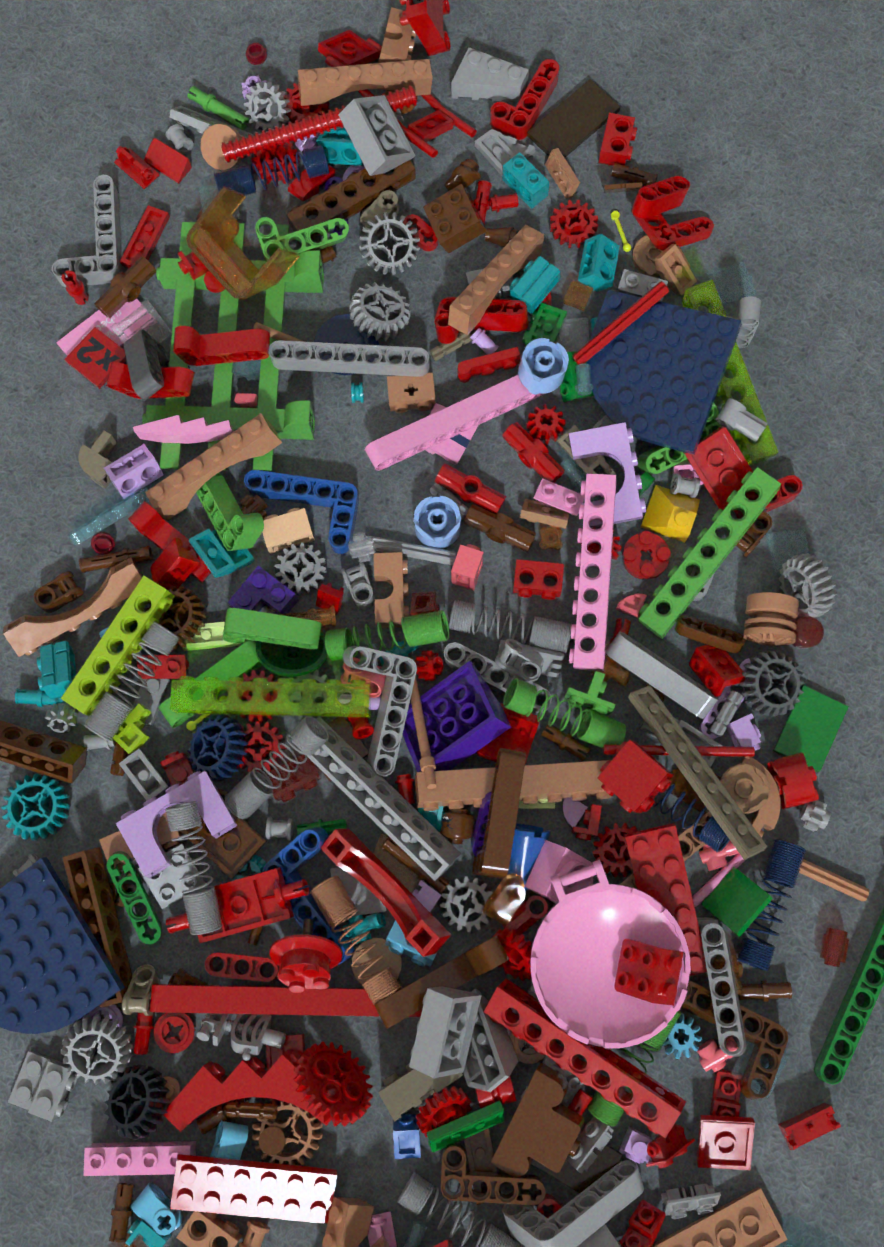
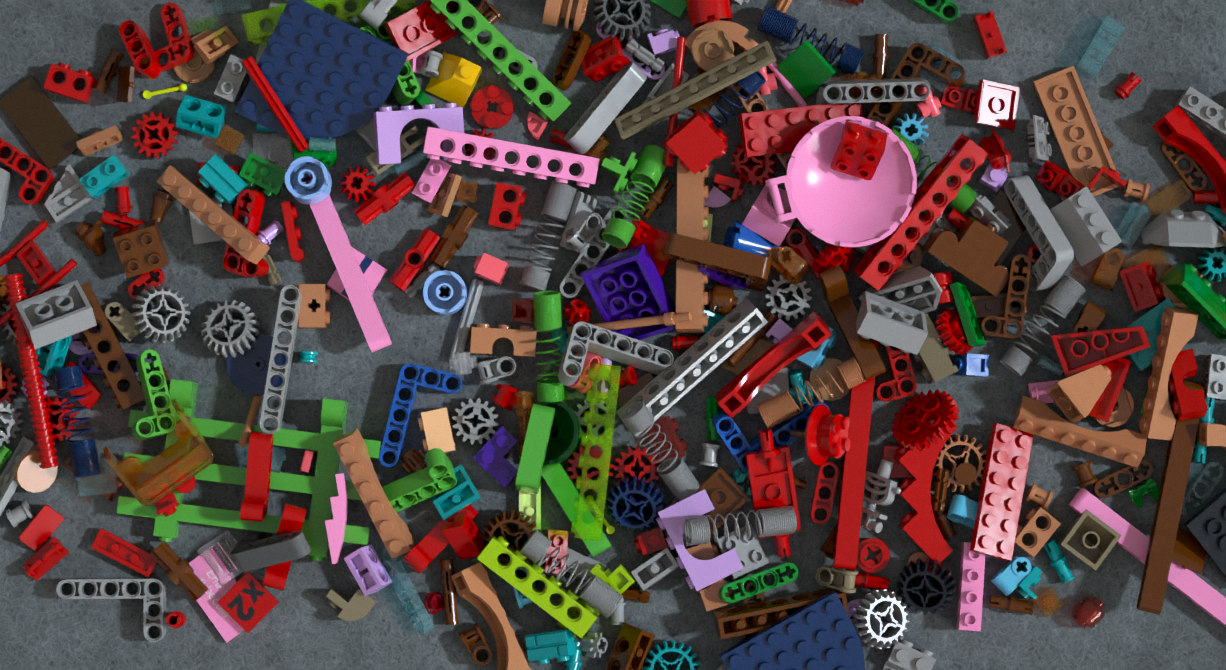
camera: 90 degrees left, 10 degrees up
(384, 1046) = (898, 376): none -> red beam

